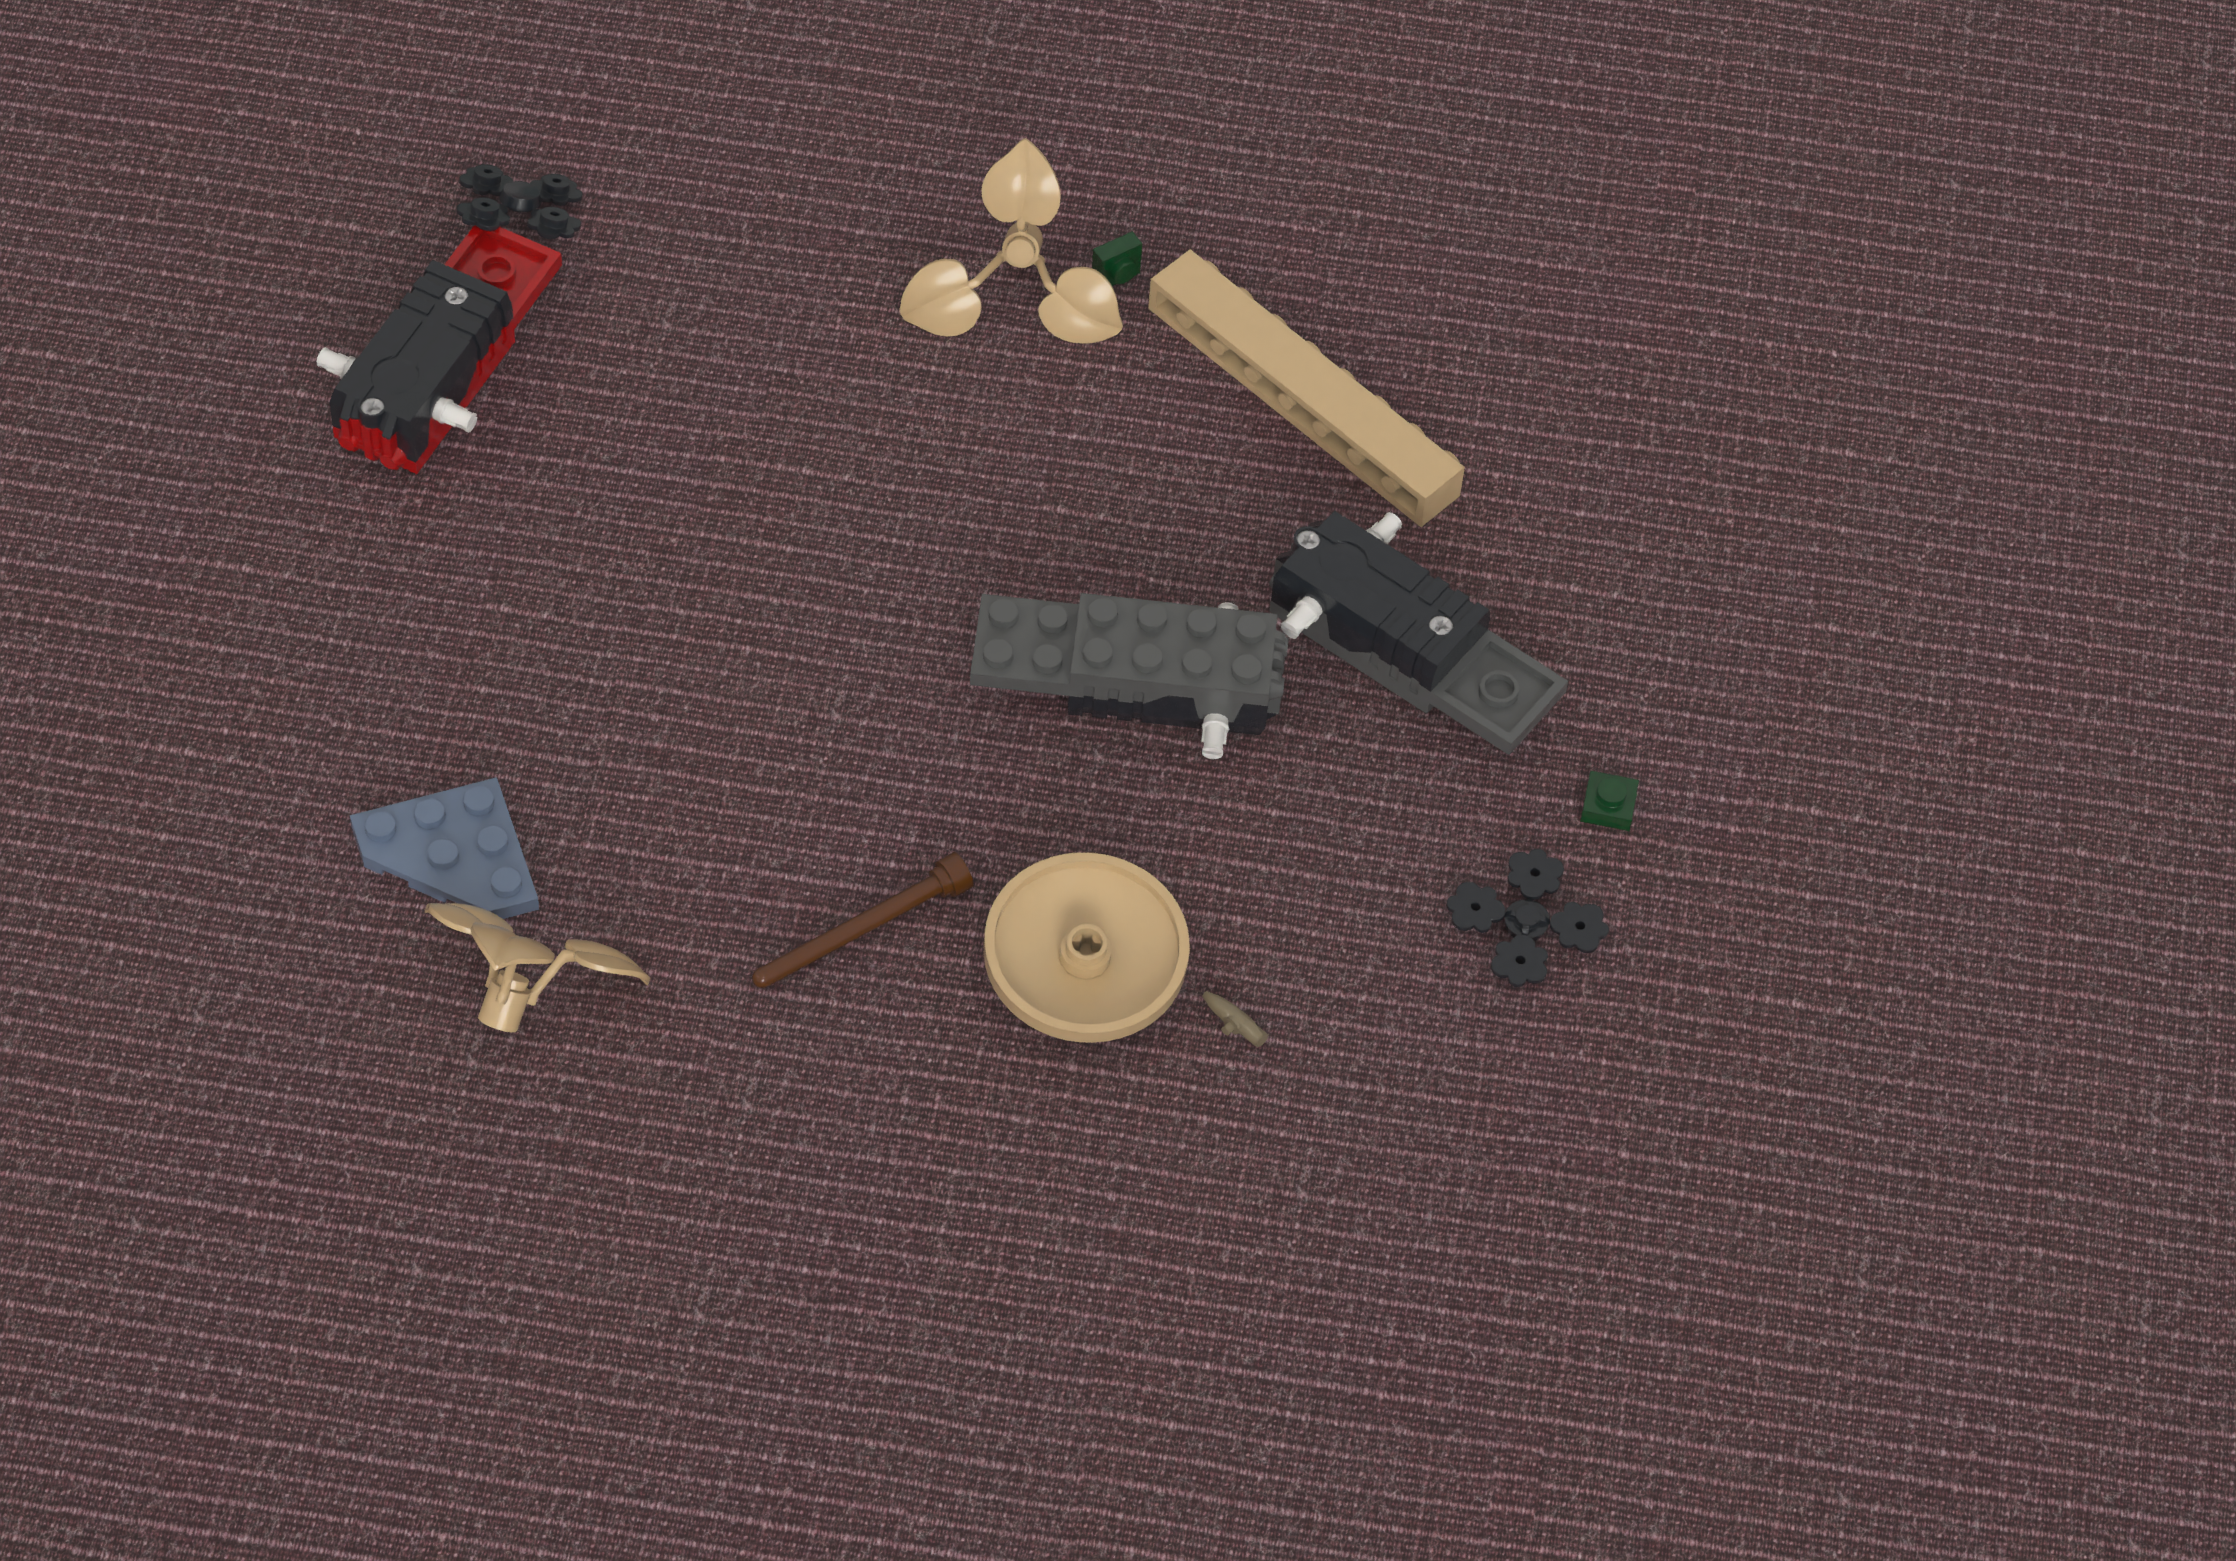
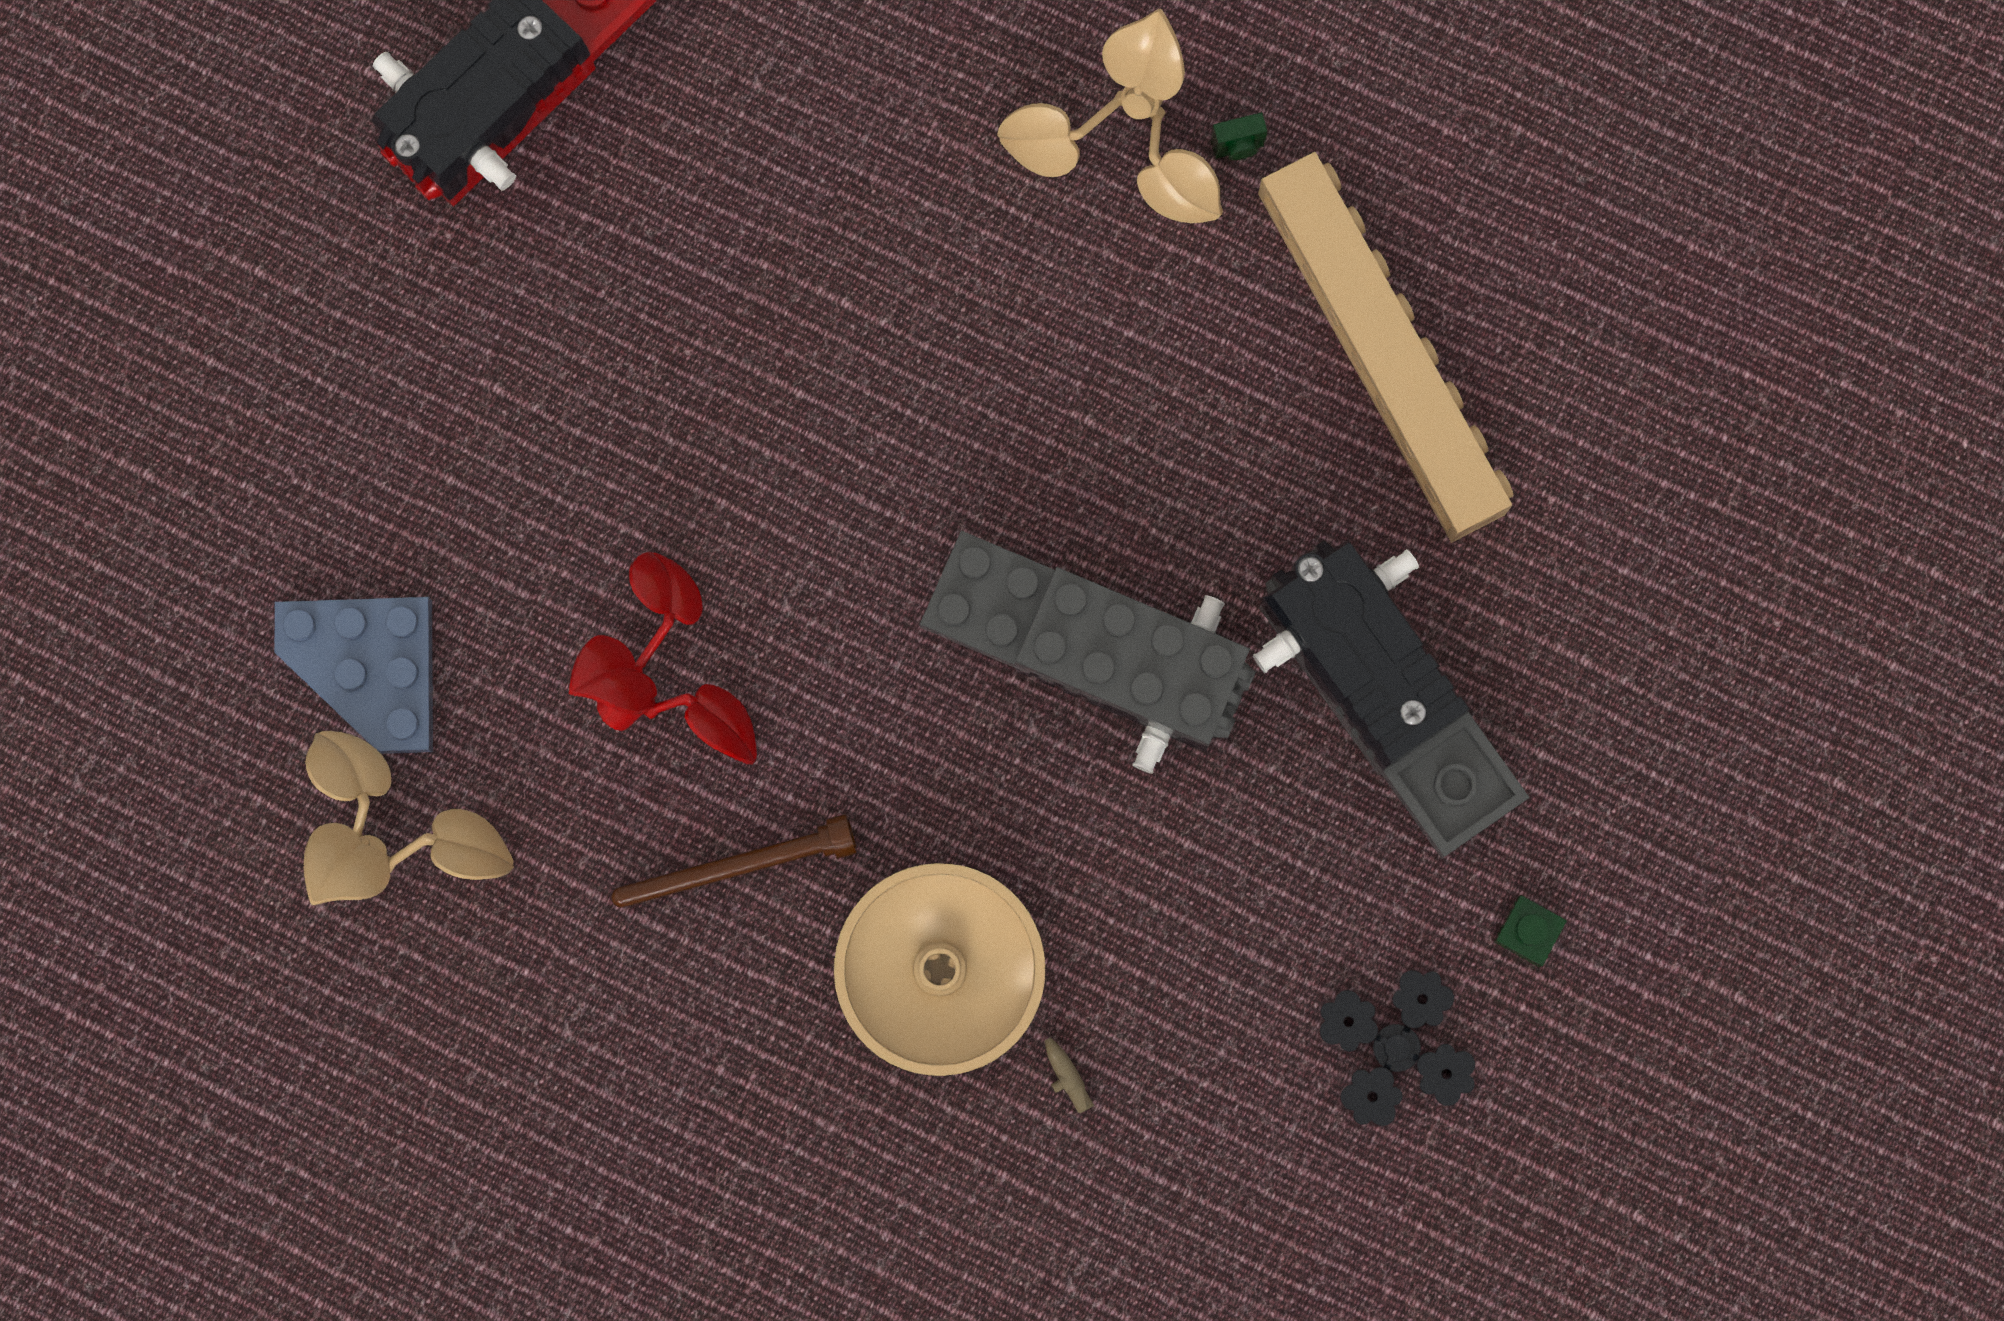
camera: 25 degrees right, 25 degrees up
(720, 800) = (623, 693): none -> red plant

